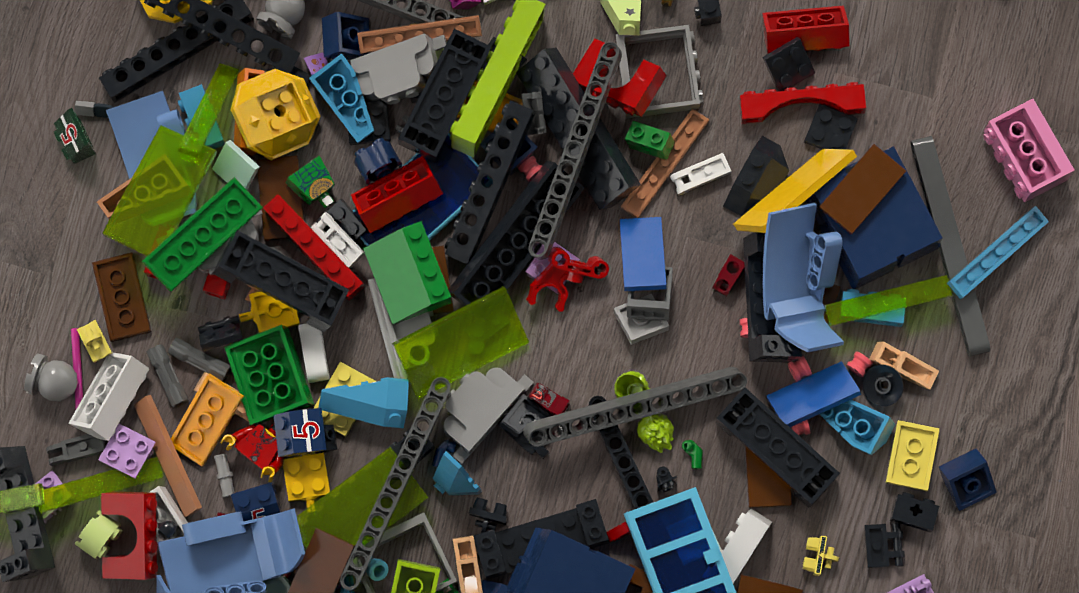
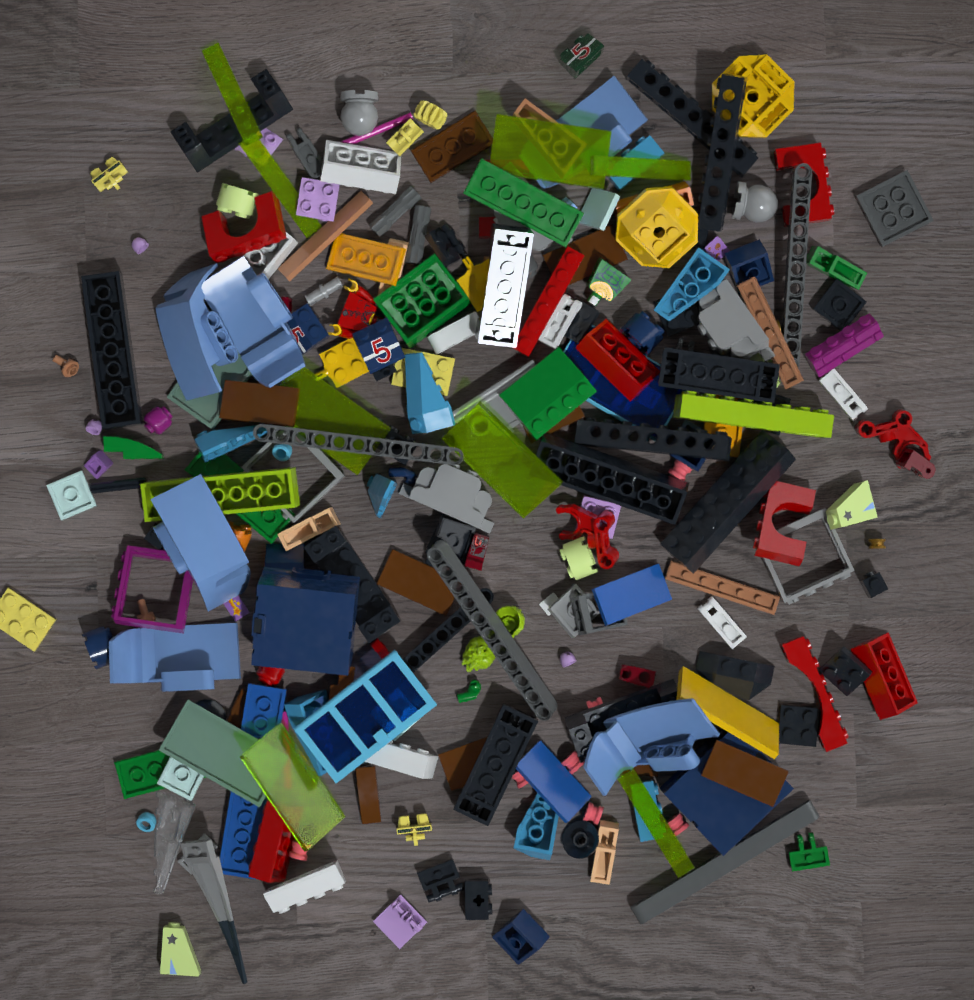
camera: 65 degrees right, 10 degrees up
(80, 307) = (430, 114): none -> light yellow gear
(92, 108) = (613, 61): piece -> none
(168, 528) = (258, 259): black hinge -> none
(497, 516) = (362, 540): black hips -> none
(534, 102) = (737, 456): dark grey hinge -> none
(561, 472) = (416, 582): none -> reddish brown tile
(575, 140) = (711, 512): dark grey beam -> none
(588, 296) = (579, 558): none -> yellowish green brick
(625, 345) = (545, 604): none -> white sticker
(649, 140) = (737, 568): green brick -> none
(665, 480) = (437, 675): black hinge -> none
(689, 342) = (567, 659): none -> lavender hinge
(896, 280) = (677, 824): none -> coral wheel
(912, 455) = (527, 882): light yellow plate -> none
(971, 159) = (808, 858): none -> green hinge
(997, 252) = (730, 906): dark azure plate -> none
(1027, 144) = (837, 918): bright pink brick -> none

